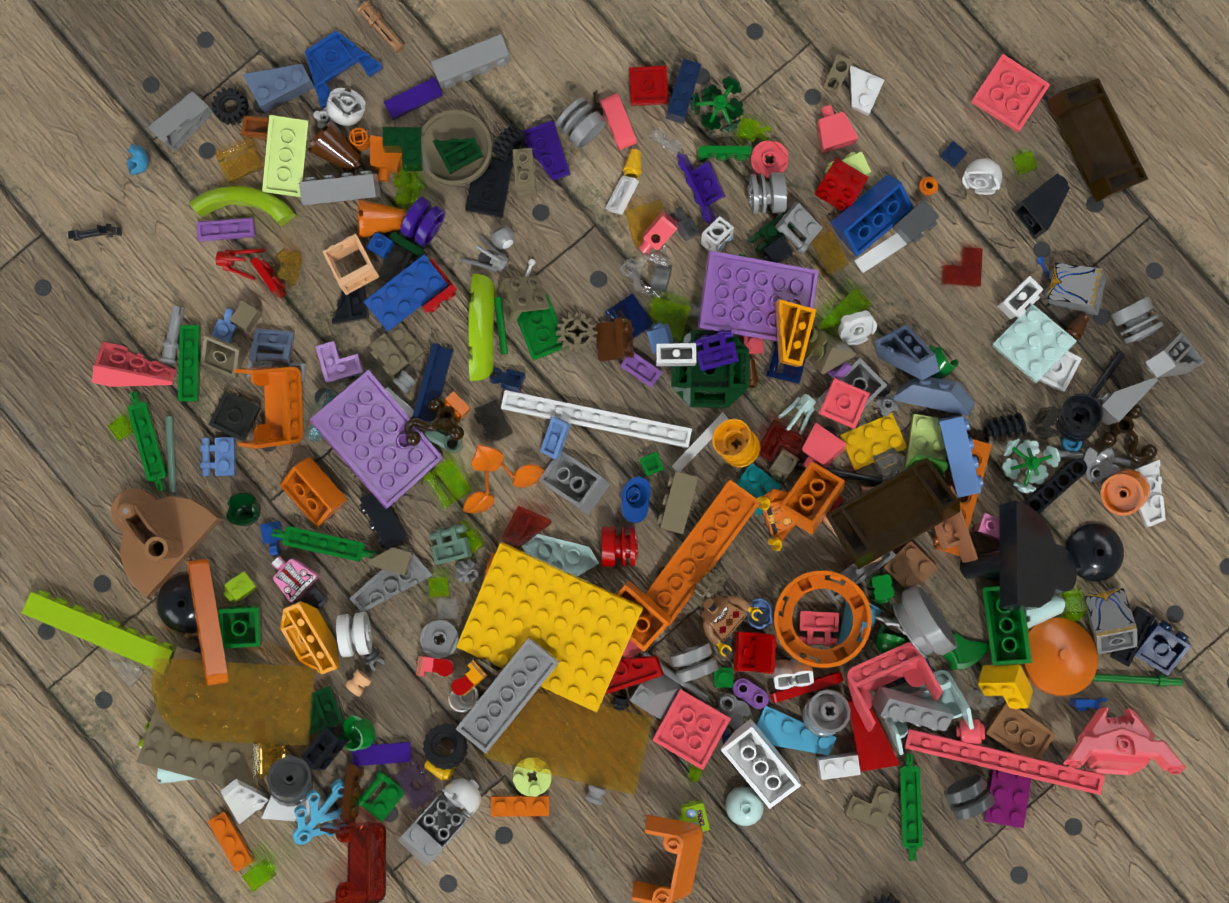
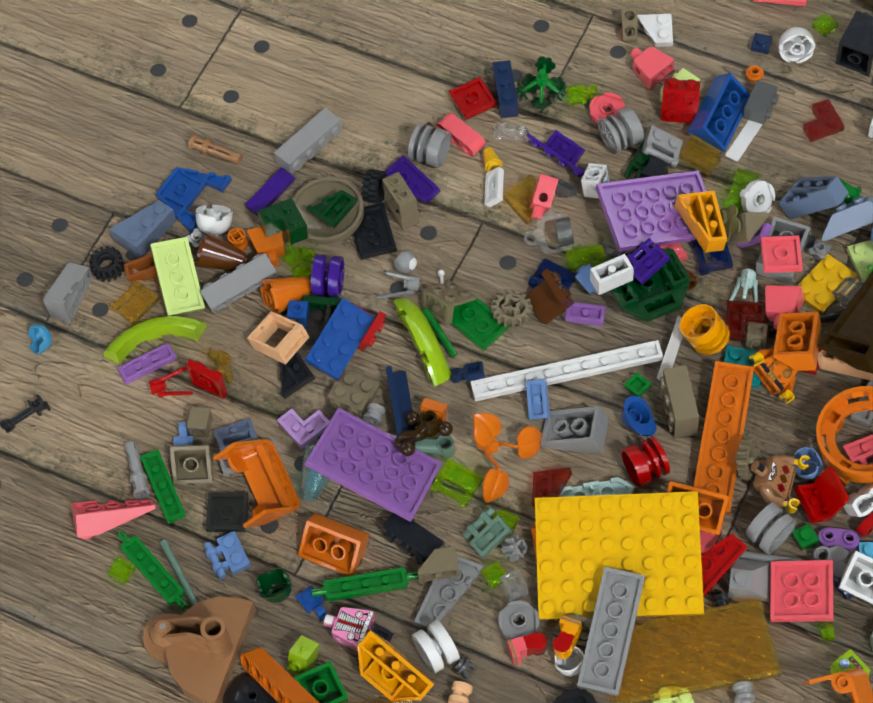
camera: 20 degrees left, 25 degrees down
(493, 421) = (466, 408): clear smoke bracket -> none
(722, 153) = (565, 119): green plate -> none

